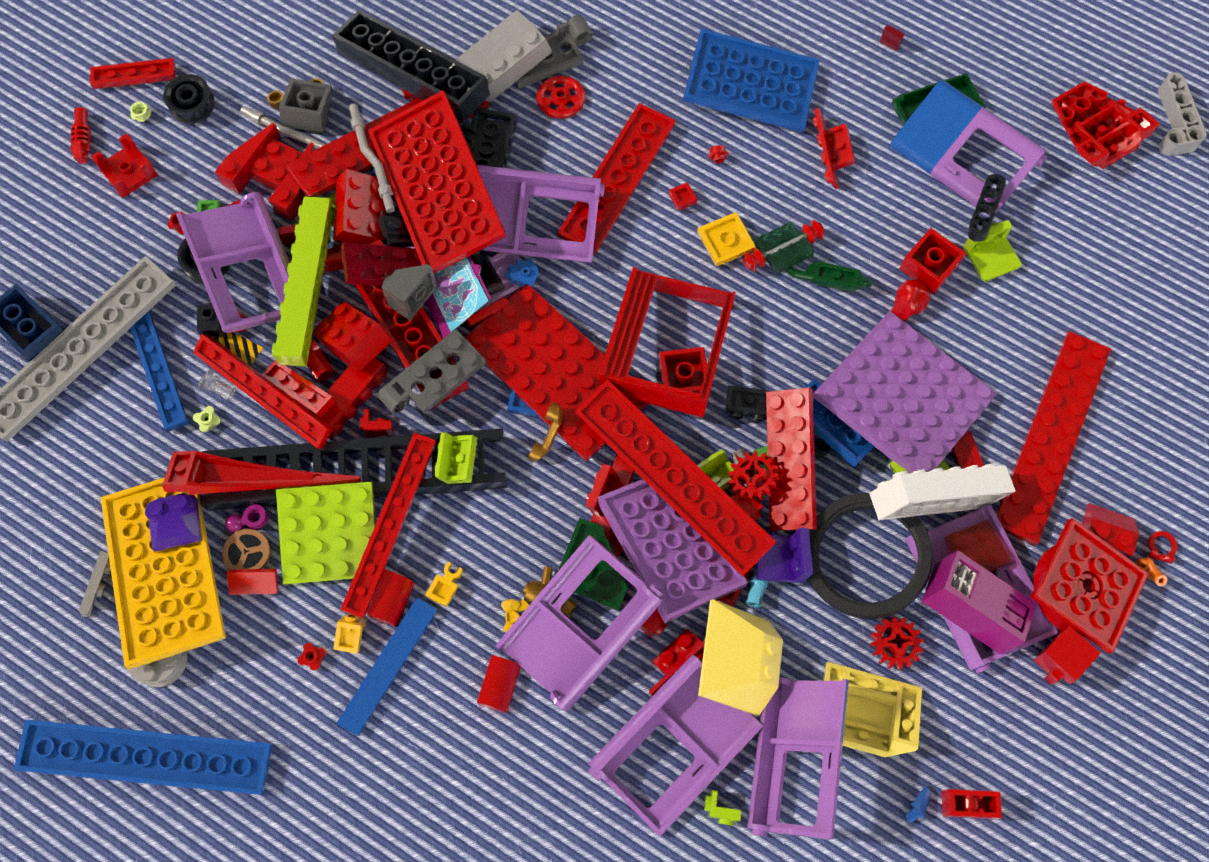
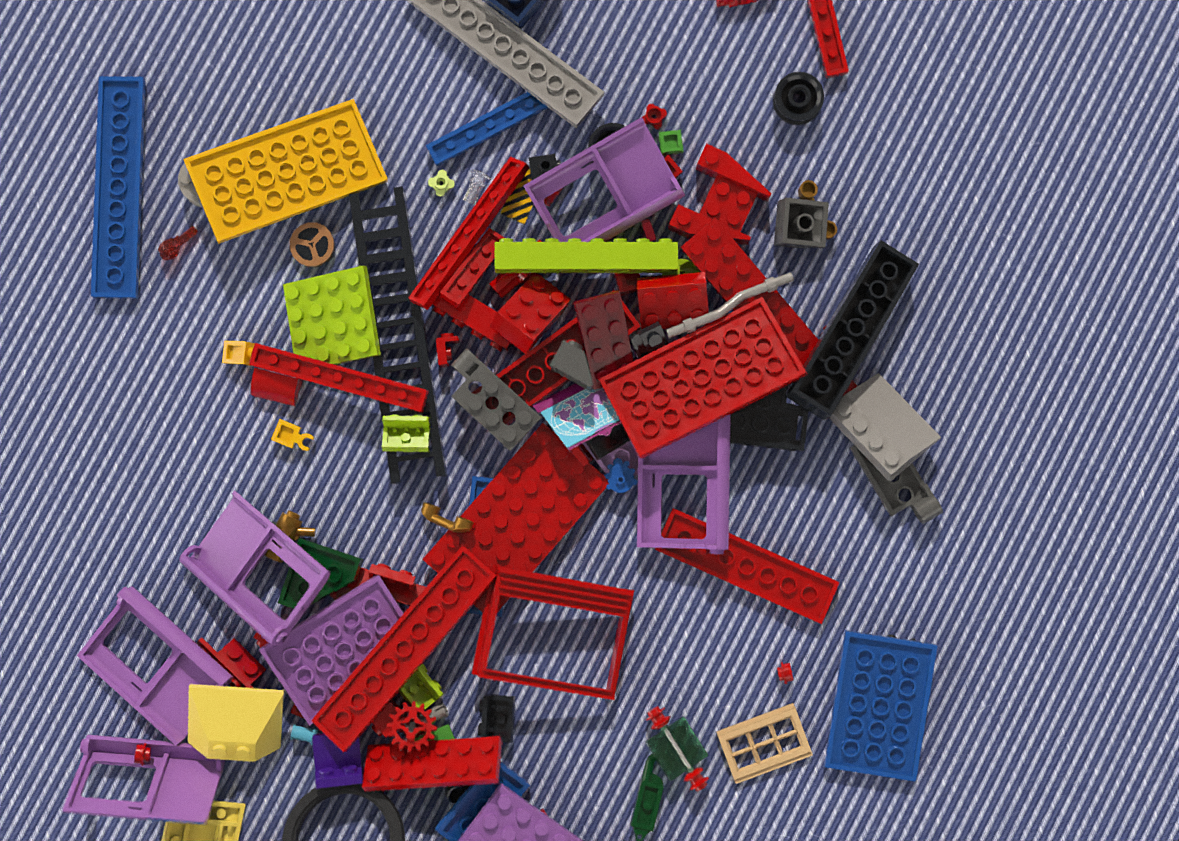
camera: 90 degrees right, 15 degrees up
(95, 586) = (267, 112): light grey hinge -> none
(127, 168) = (711, 48): red panel -> none
(137, 108) = (785, 45): yellowish green plate -> none
(173, 521) = (327, 174): dark purple slope -> none
(209, 473) = (373, 203): red plate -> none
(222, 702) = (170, 248): none -> clear red plate
(236, 522) = (339, 229): magenta plate -> none
(252, 581) = (282, 255): red tile -> none
(261, 119) = (784, 176): light grey bar -> none
(315, 662) = (223, 321): red plate -> none
(387, 667) = (214, 392): blue tile -> none
(499, 684) = (202, 497): red brick -> none
(512, 608) = (266, 503): yellow piece -> none
(562, 111) = (857, 480): red plate -> none
(682, 196) = (729, 637): red plate -> none
(683, 368) = (520, 650): red brick -> none
(725, 815) = (98, 713): lime bracket -> none
(726, 239) = (682, 686): yellow plate -> none
(771, 763) = (142, 754): none -> red plate
(799, 172) = (773, 762): none -> tan piece
(836, 147) = (805, 801): red bracket -> none

